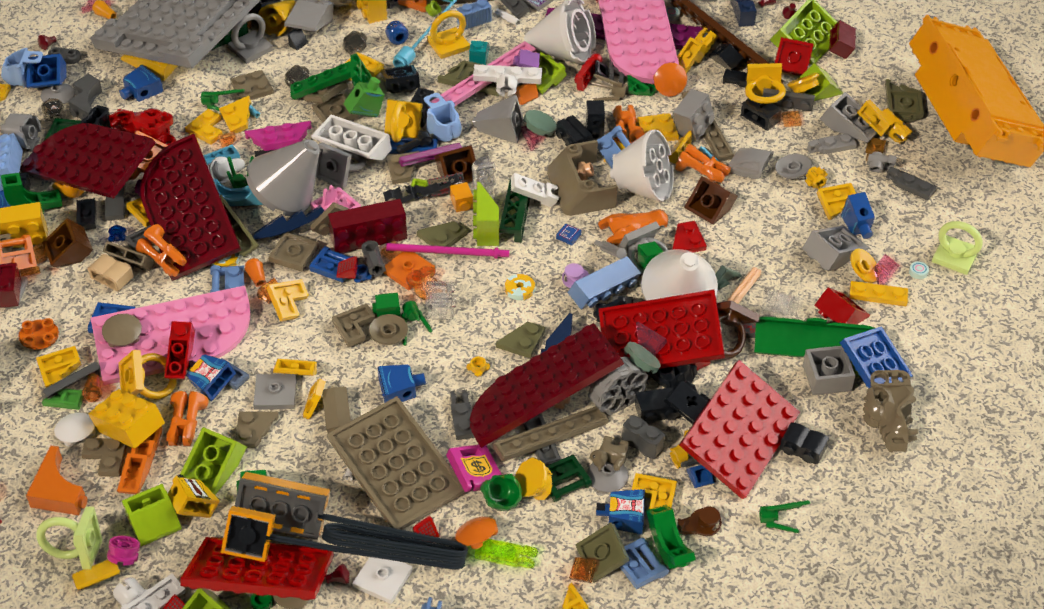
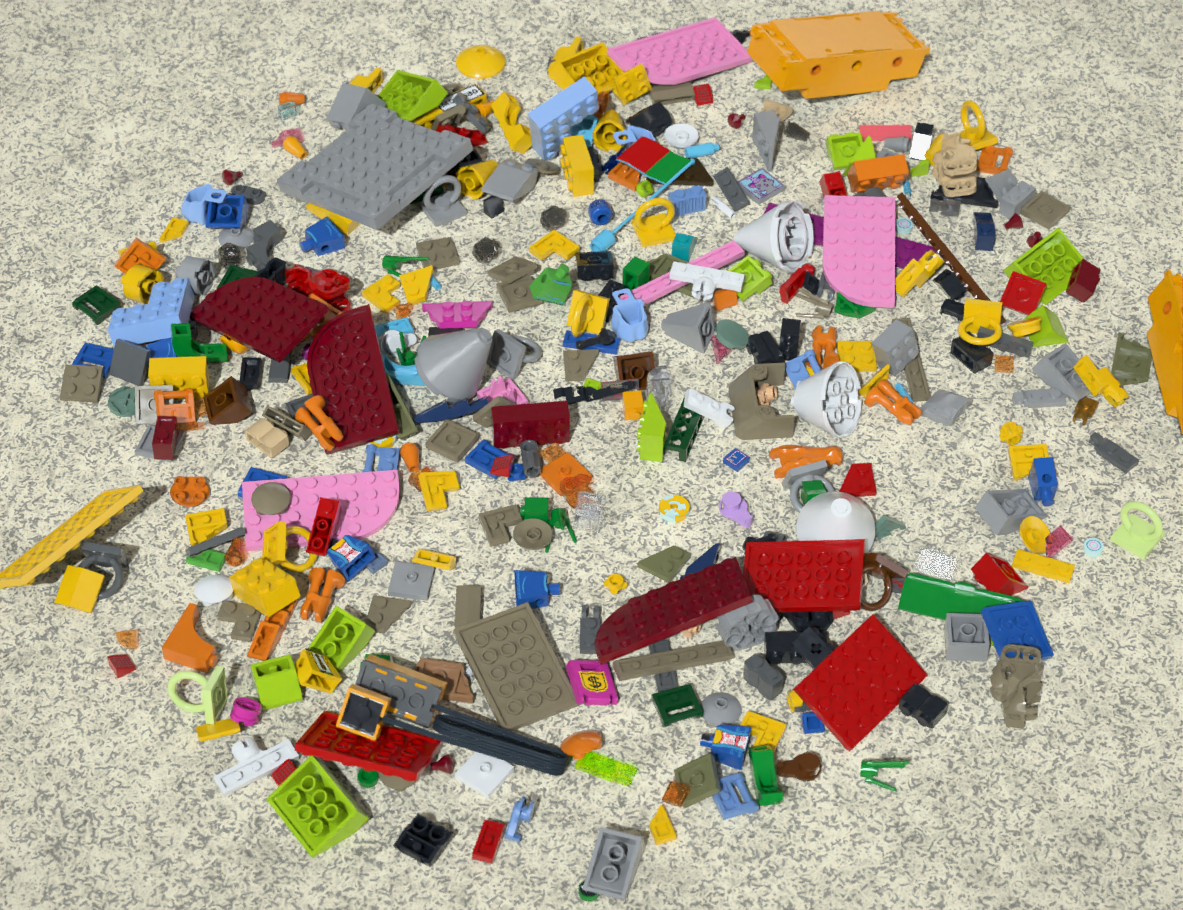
camera: 10 degrees right, 0 degrees up
(116, 233) = (278, 397): clear blue plate -> none
(313, 398) = (447, 592): yellow tile -> none
(328, 478) = (449, 672): none -> medium nougat wing
(353, 69) = (545, 252): green bracket -> none
(353, 138) = (532, 327): white slope -> none
(426, 155) = (606, 355): magenta axle -> none
(426, 527) = (533, 732): red slope -> none
(441, 79) = (636, 273): none -> green brick
(443, 234) = (606, 444): olive wing -> none
(448, 250) = (656, 469): dark pink bar -> none
(502, 492) = (612, 710): green hair -> none
(526, 59) = (730, 262): medium lavender brick -> none
(534, 479) = (645, 702): yellow hat -> none
(604, 283) = (759, 516): medium blue brick -> none
(611, 249) = (774, 482): light grey axle -> none
(611, 453) = (726, 687): dark tan animal -> none
(642, 357) = (776, 598): sand green tile -> none
(650, 339) = (789, 581): clear pink tile -> none
(670, 79) = (881, 303): orange dish -> none
(710, 200) = (892, 443): reddish brown slope -> none
(745, 285) = (904, 540): light nougat axle -> none
(793, 166) = (989, 417): light grey dish -> none
(878, 161) = (1082, 424): light grey plate -> none

